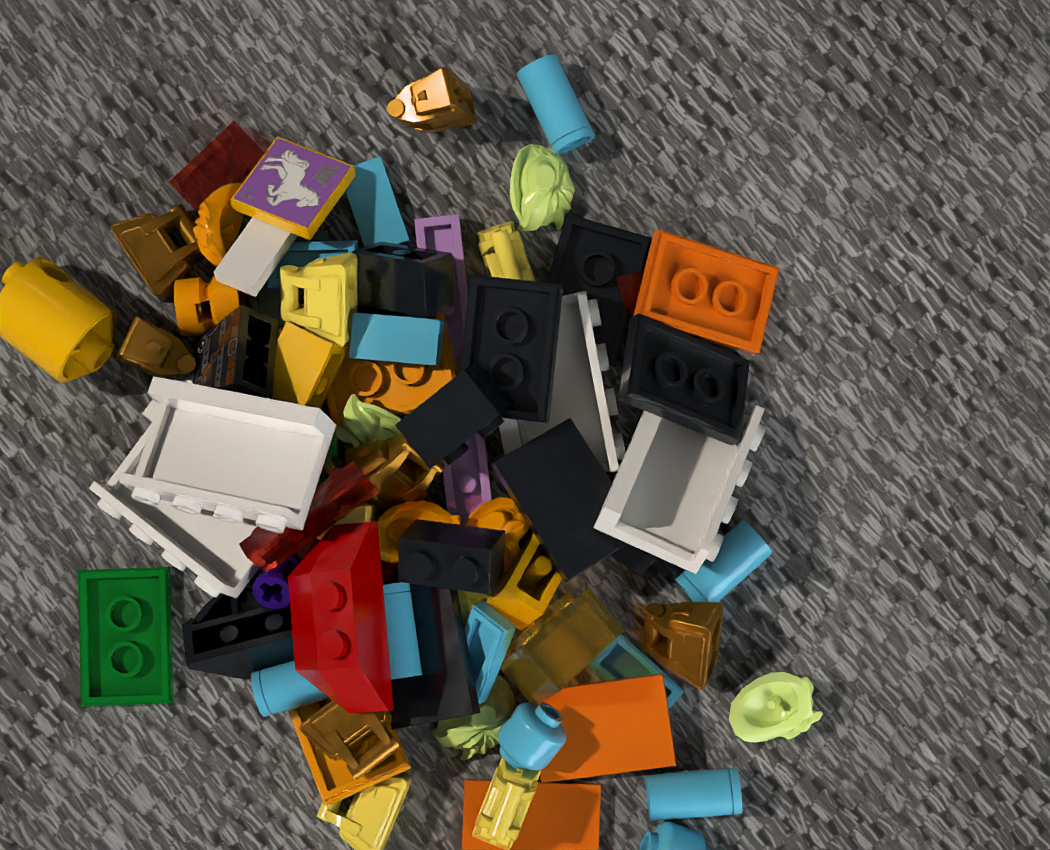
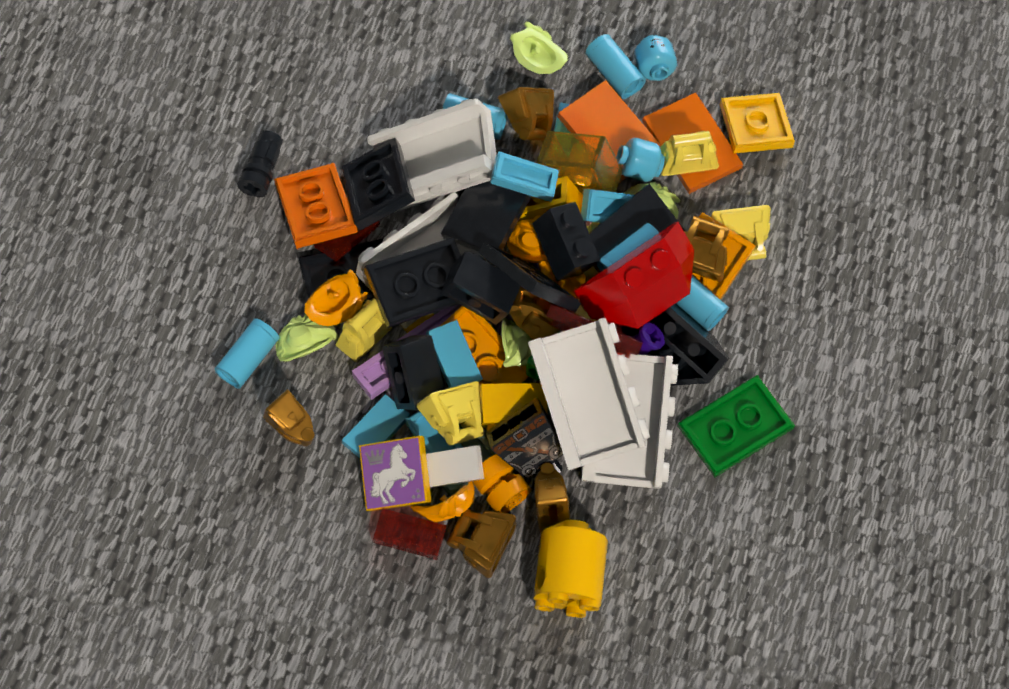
camera: 125 degrees left, 20 degrees down
(424, 477) = (529, 277): none -> black tile
(558, 239) = (335, 300): none -> light orange hat
(568, 555) = (524, 176): none -> medium azure tile
(807, 261) = (258, 171): none -> black axle

